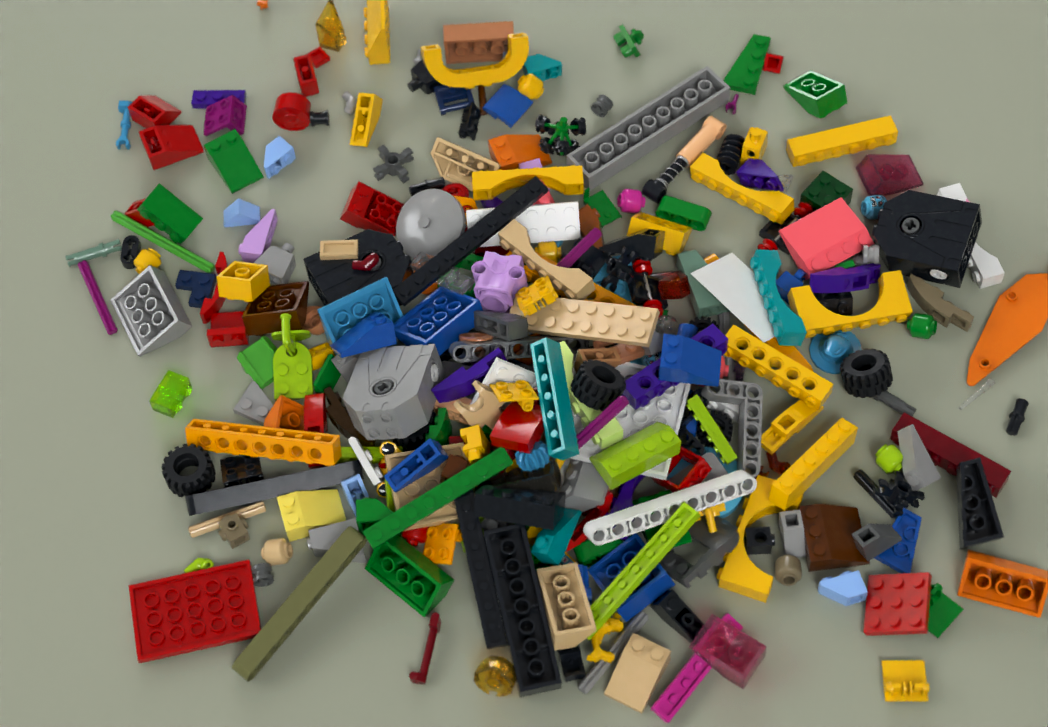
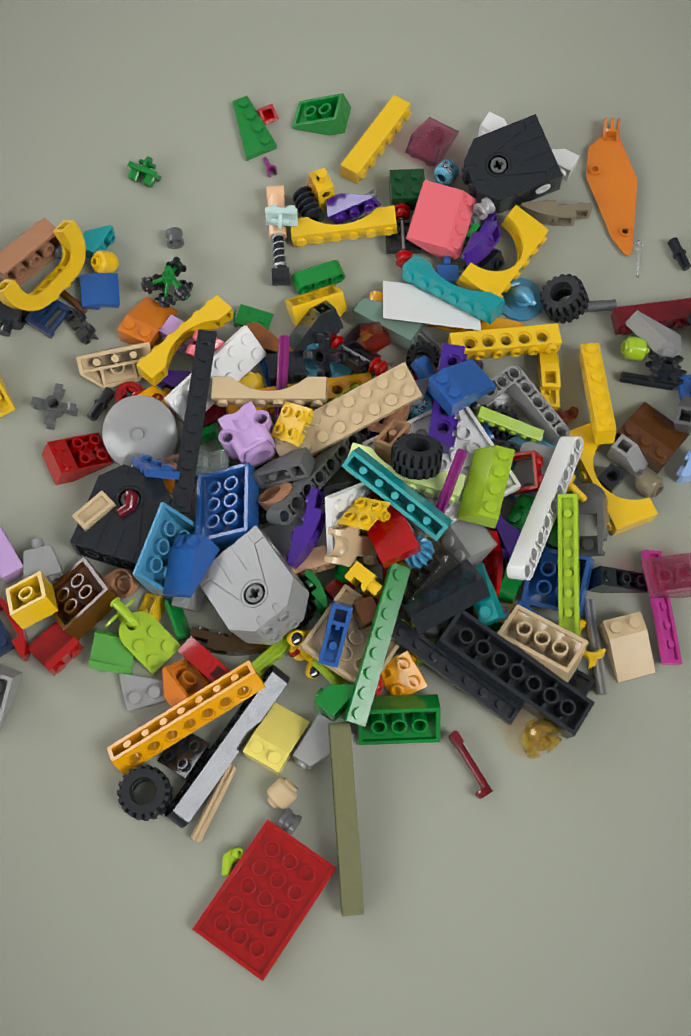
camera: 50 degrees left, 10 degrees up
(171, 394) = (62, 743): clear neon green brick -> none
(233, 530) = (235, 800): dark tan brick -> none
(354, 490) = (299, 695): light blue slope -> none
(365, 459) = (279, 660): white hinge -> none
(409, 252) = (154, 467): none -> blue wing
(630, 201) = (271, 296): dark pink head -> none
(649, 127) = (229, 227): light grey brick -> none
(694, 144) = (281, 216): none -> light aqua hips
(922, 326) = (561, 236): green head -> none

